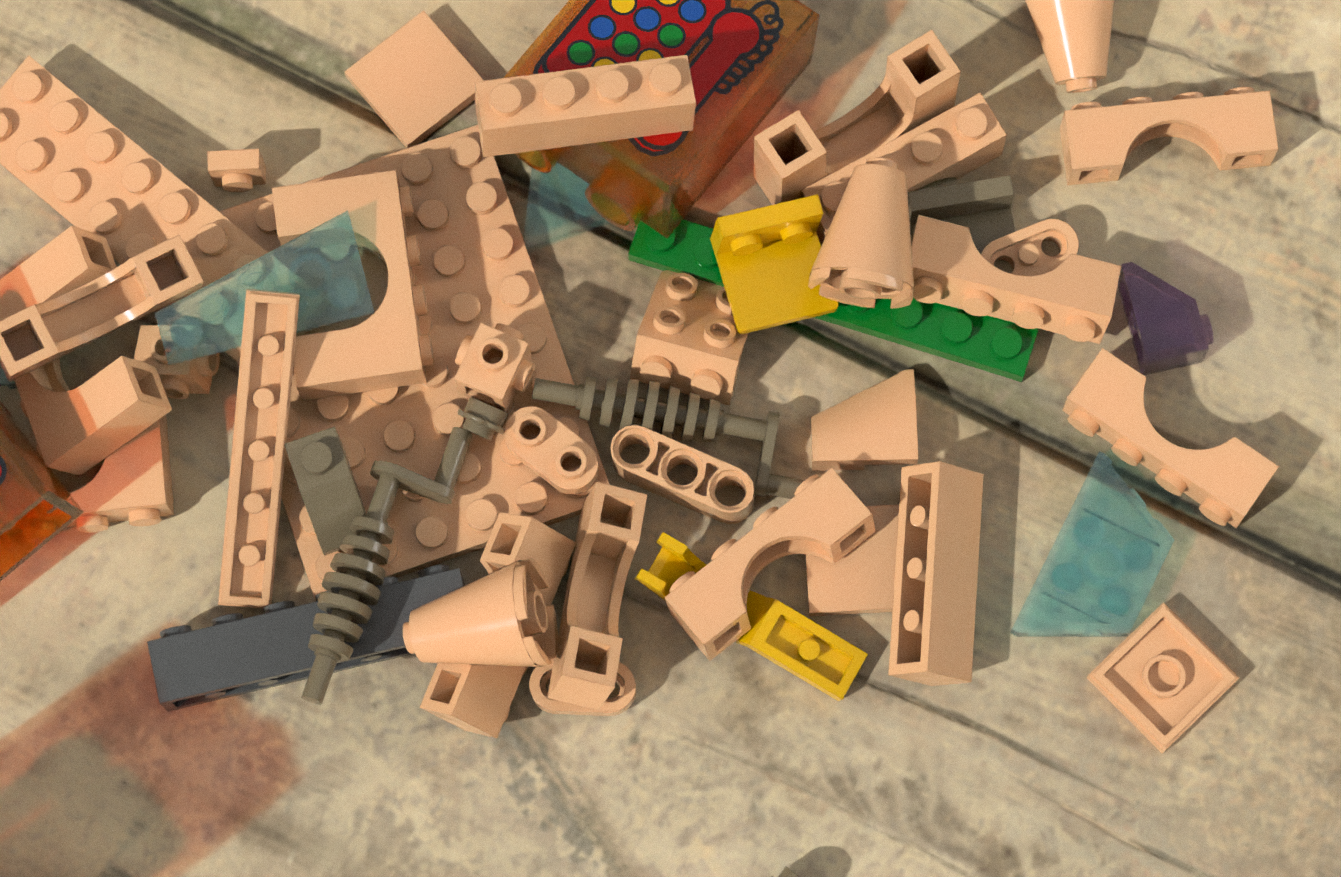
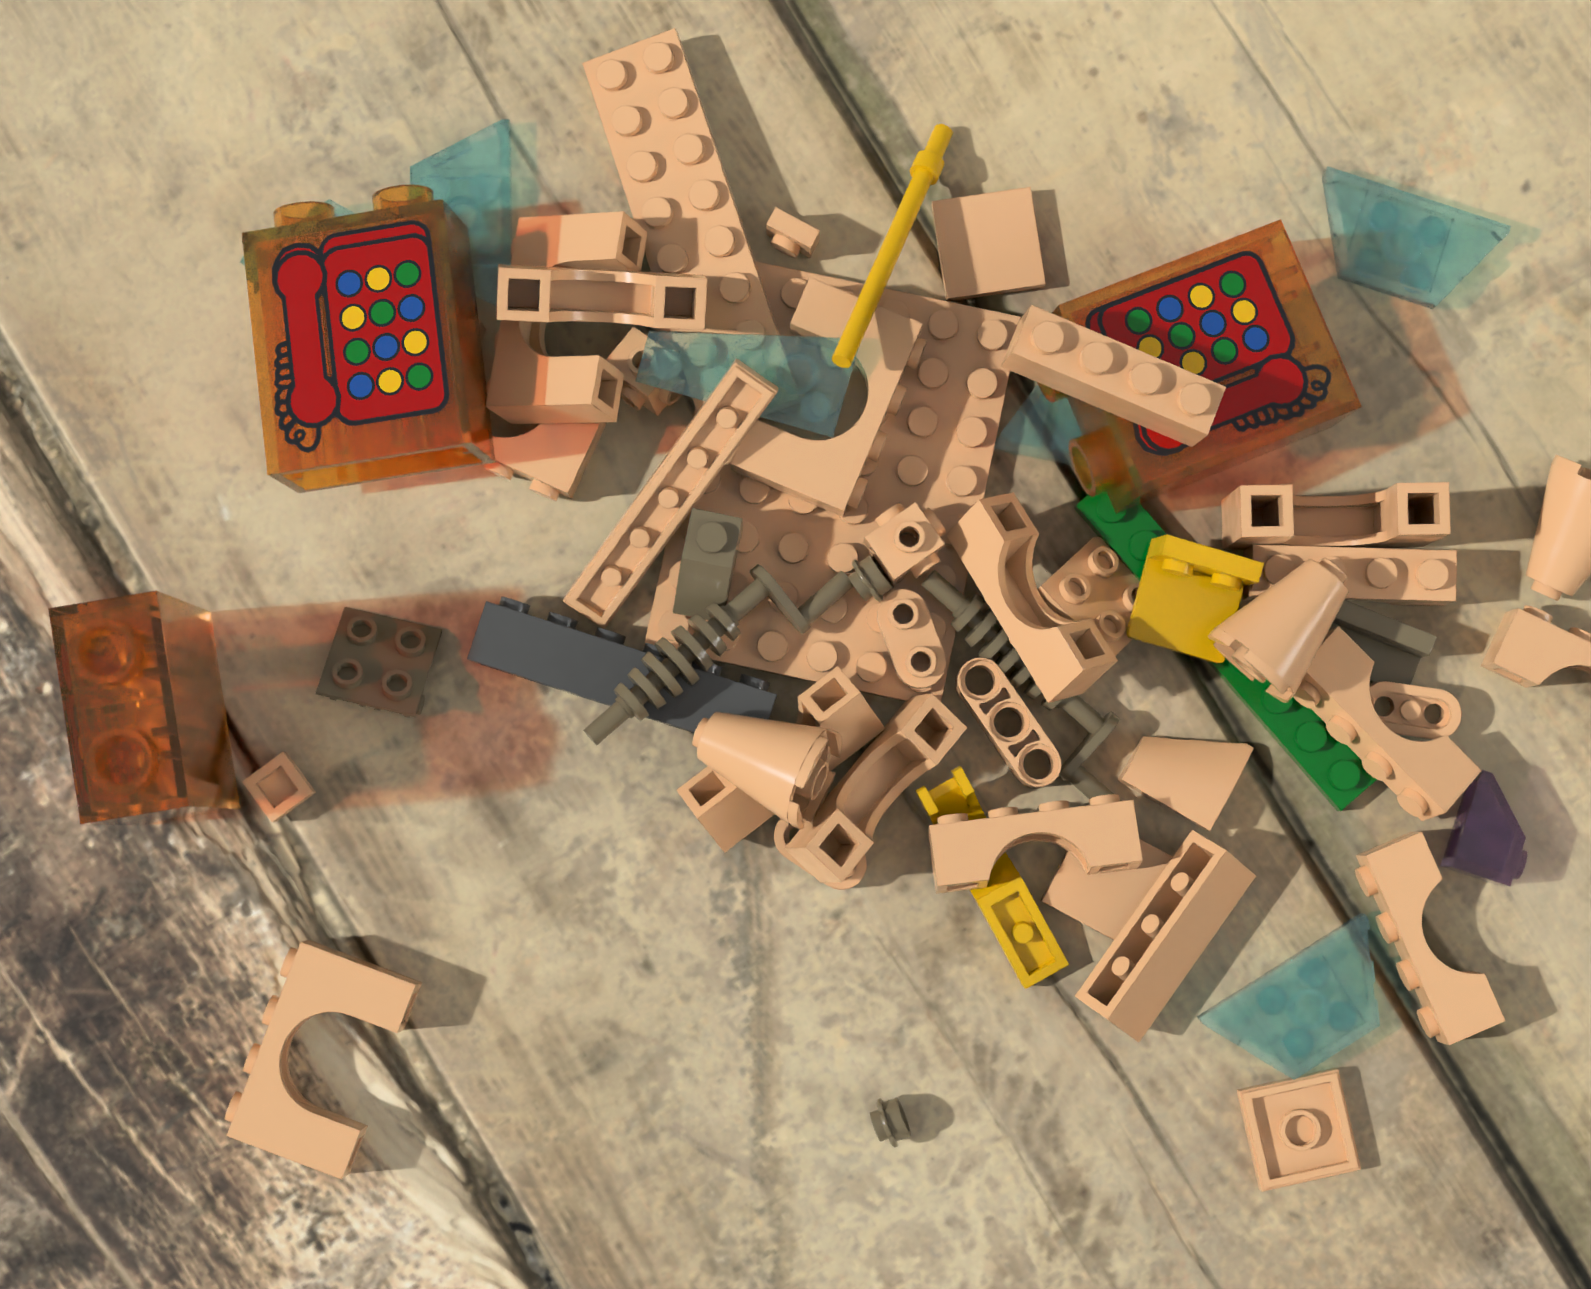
camera: 25 degrees right, 10 degrees up
(82, 760) = (379, 662): none -> dark tan hinge
(323, 49) = (924, 172): none -> yellow bar
(577, 323) = (998, 549): none -> light nougat arch

